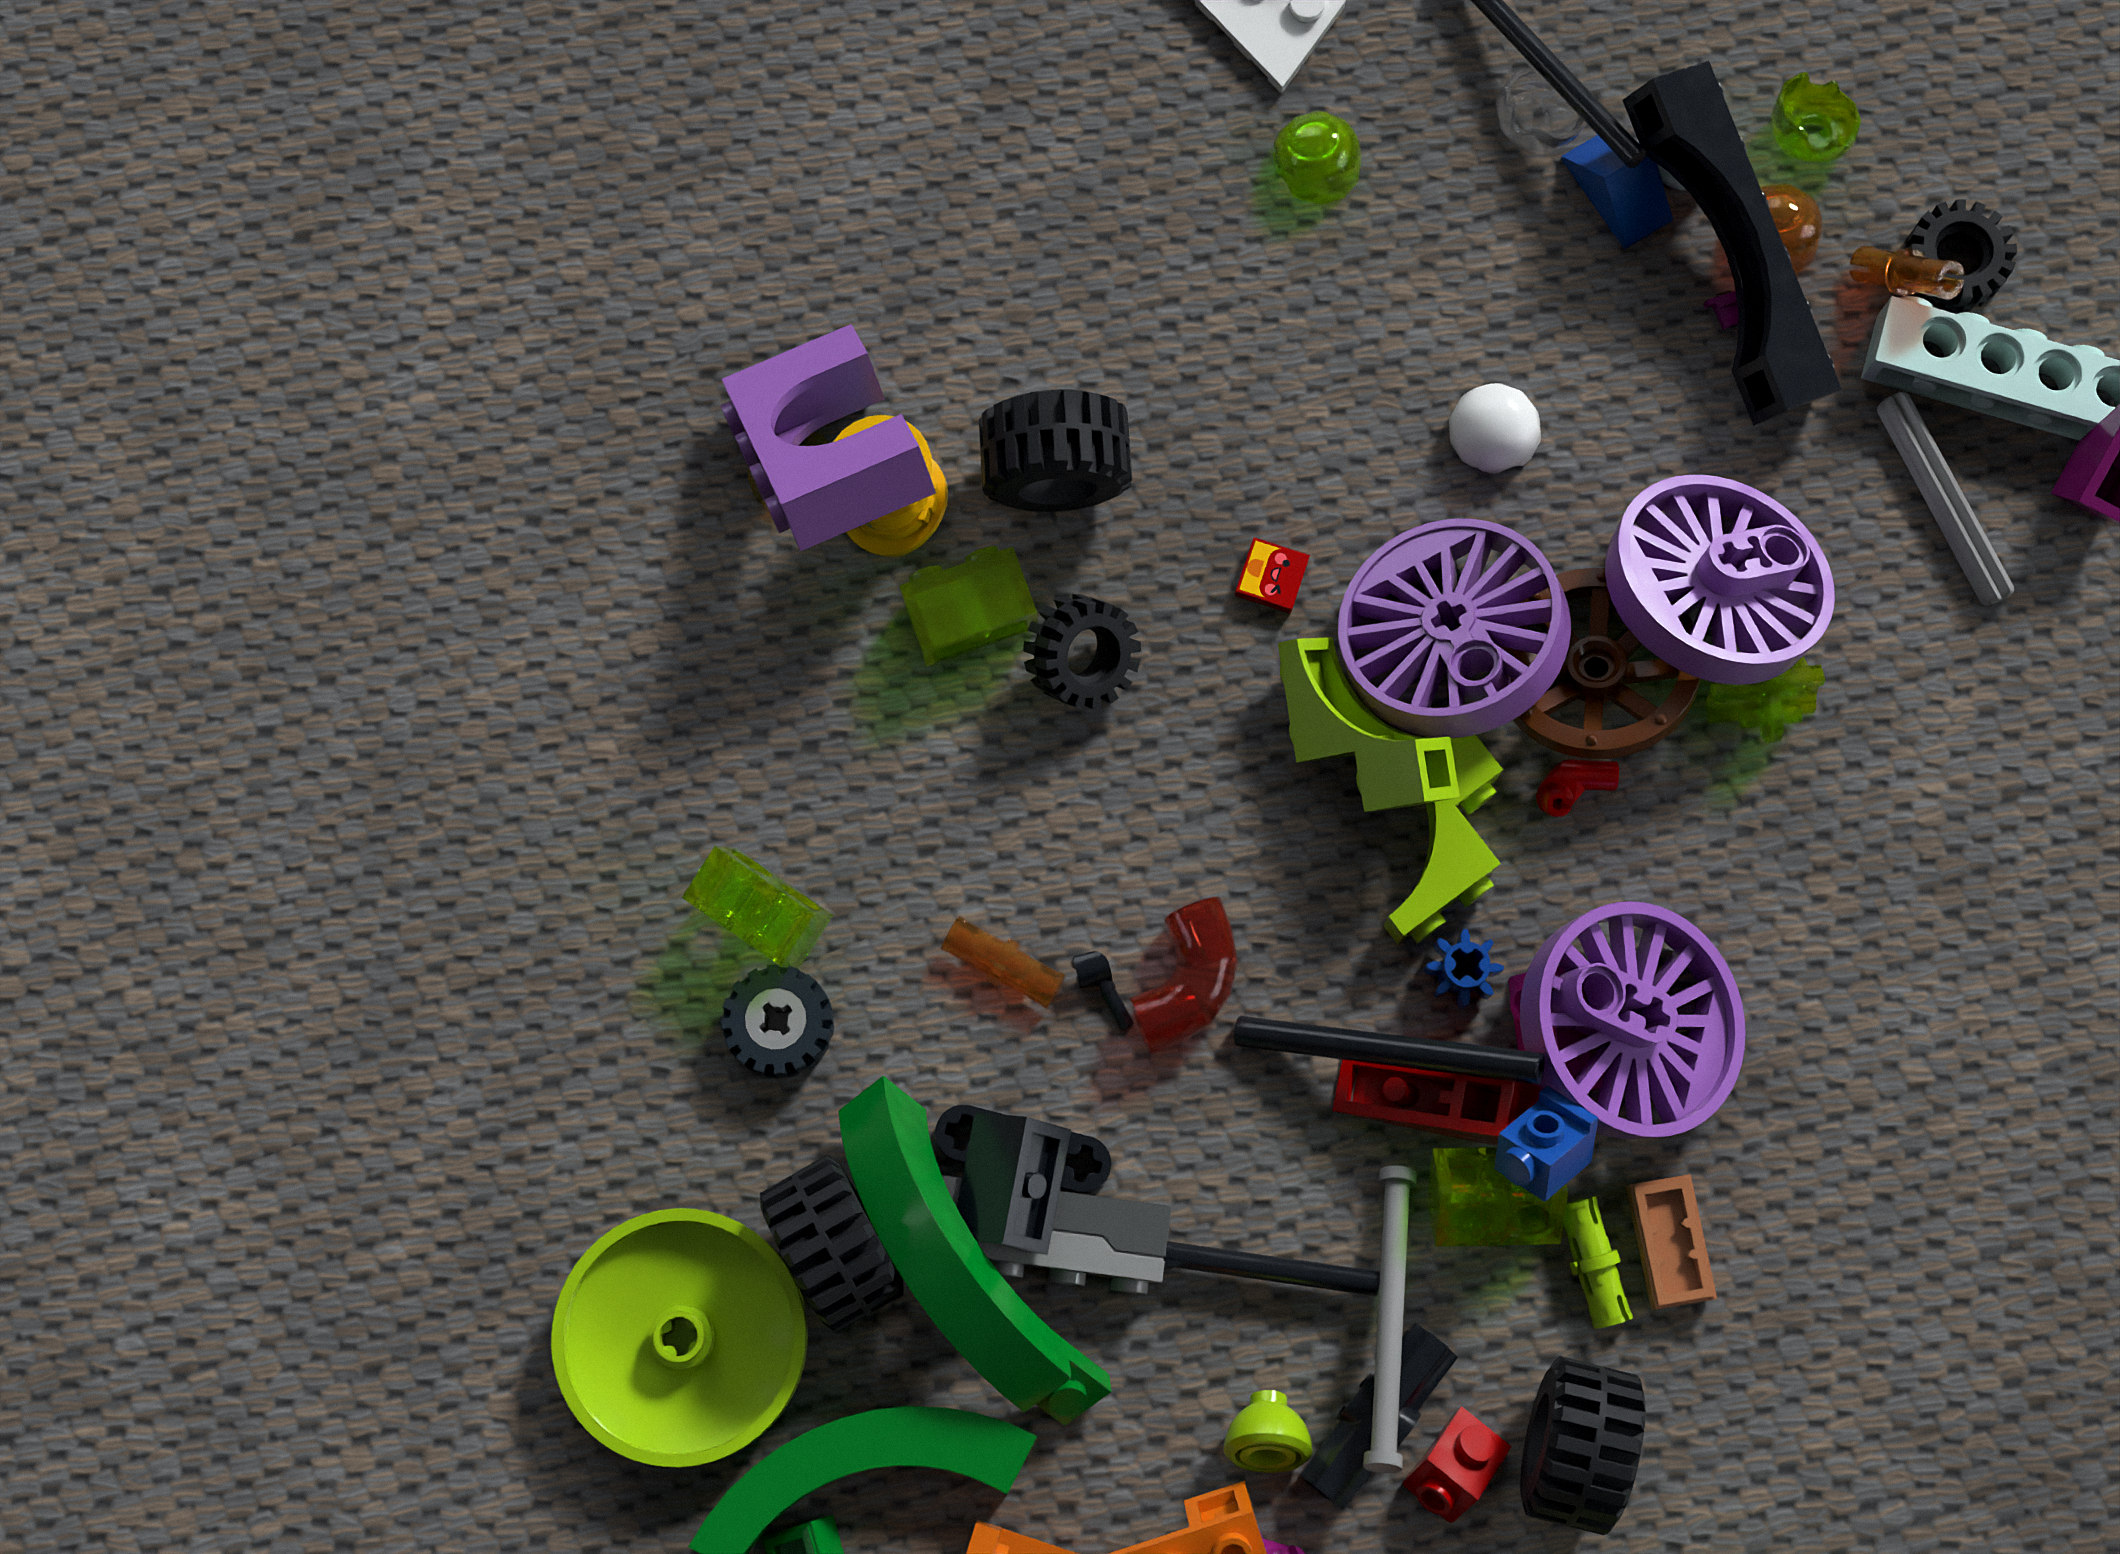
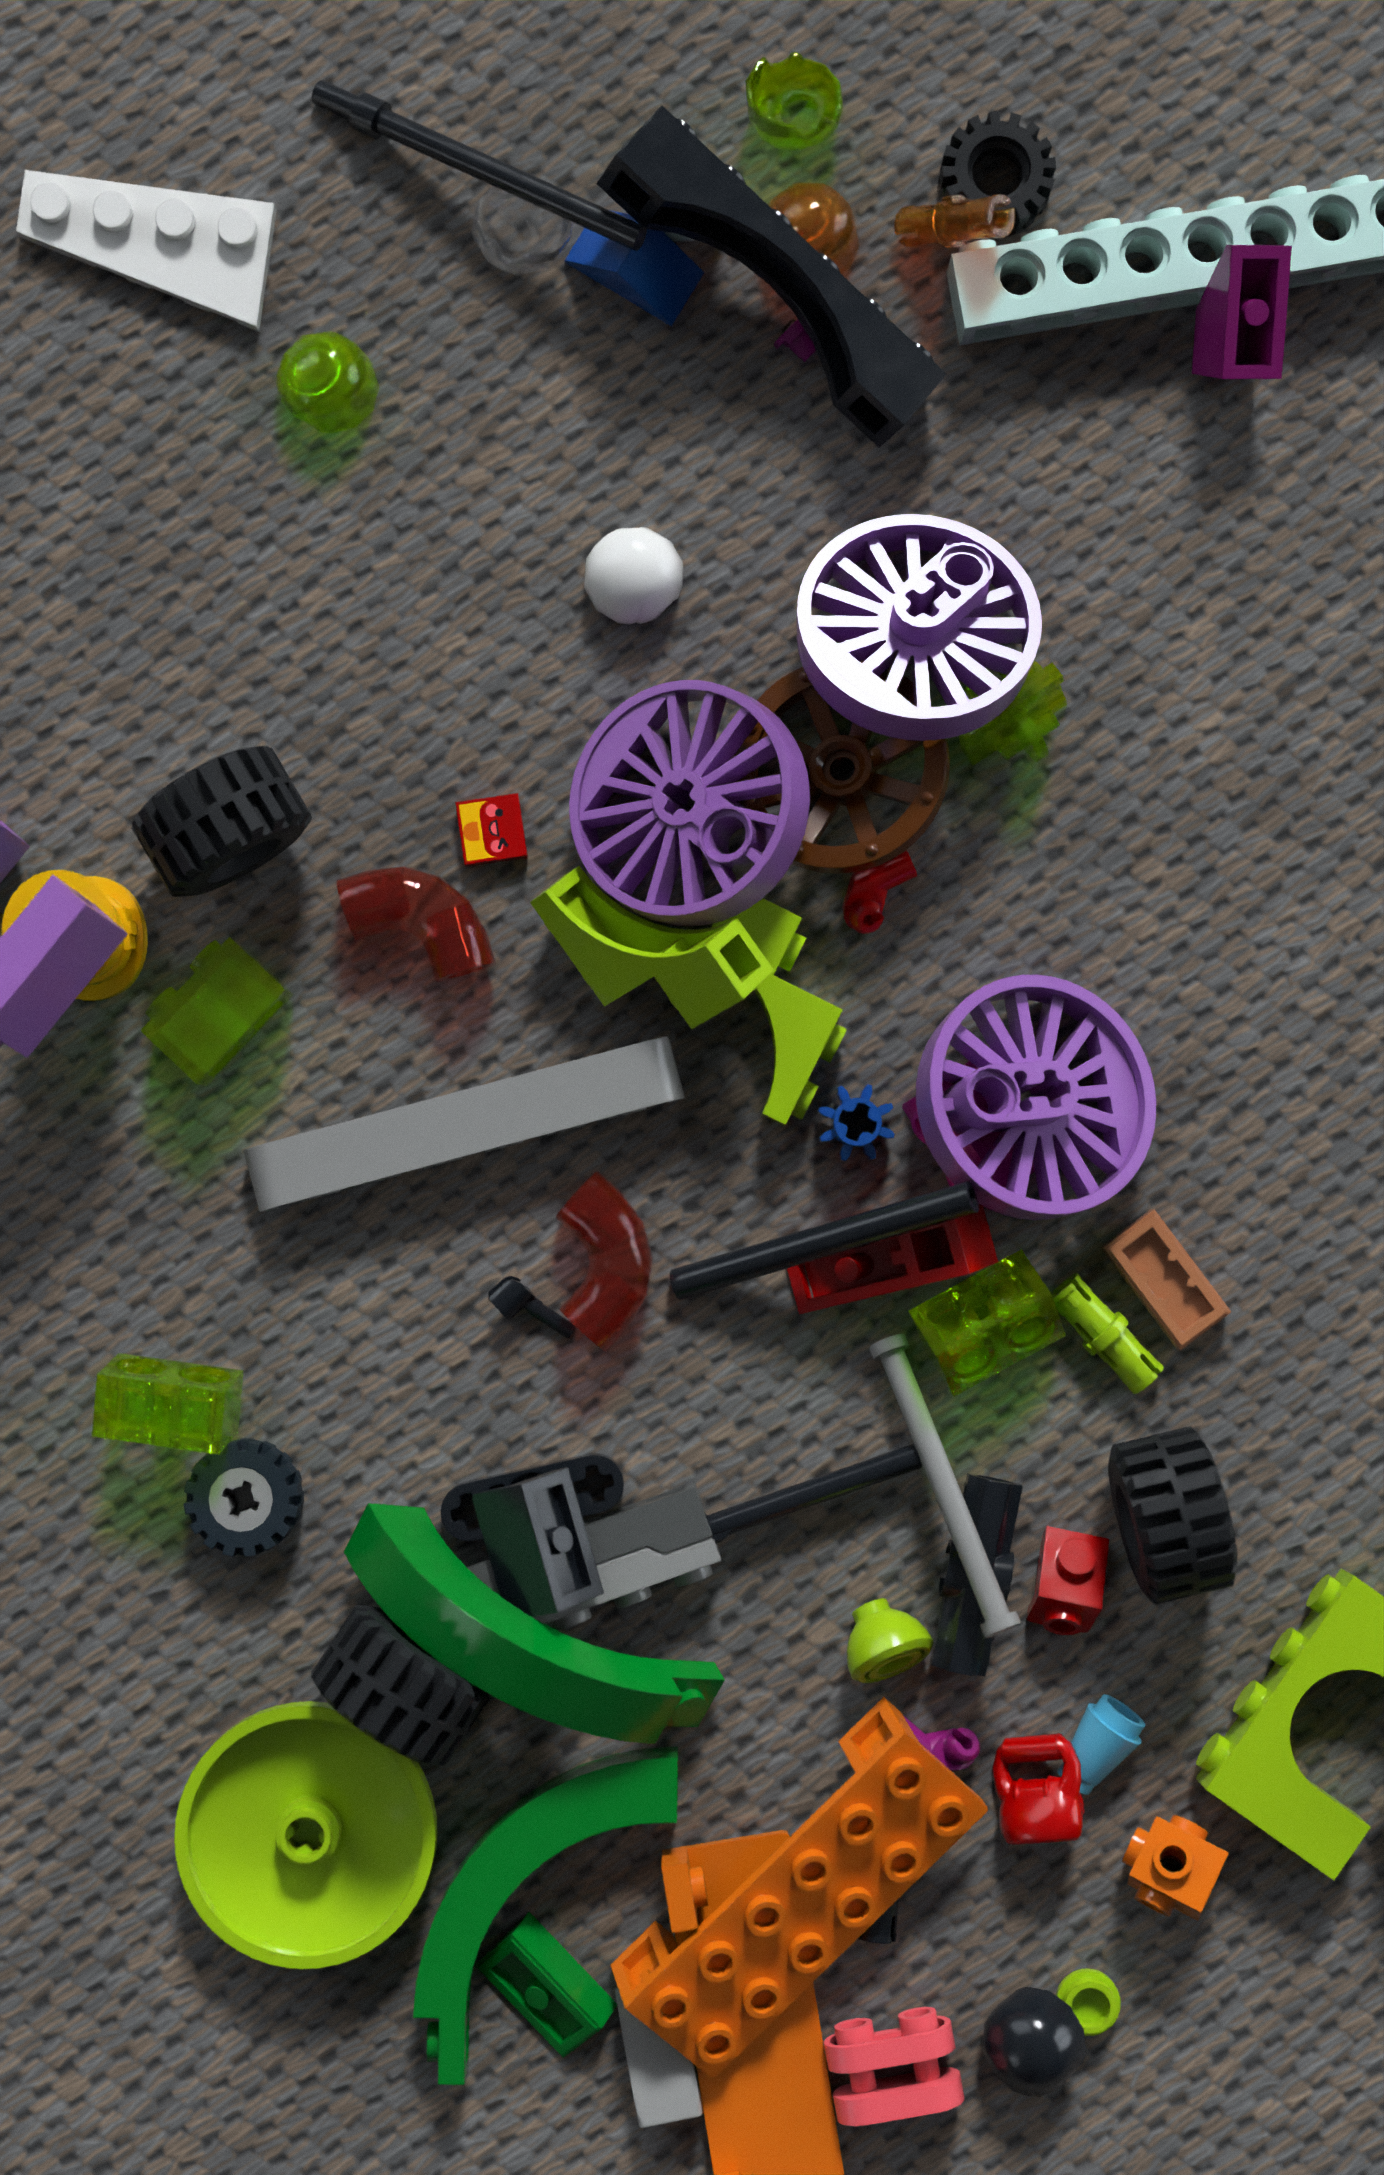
camera: 30 degrees left, 10 degrees up
(1003, 962) = (425, 1333): clear orange pin -> none
(1110, 659) = (379, 1005): black tyre -> none
(1128, 800) = (463, 1123): none -> light grey beam
(1186, 609) = (424, 907): none -> clear red cylinder
(1546, 1144) = (1011, 1261): blue brick -> none
(1945, 499) = (1094, 429): light grey axle -> none

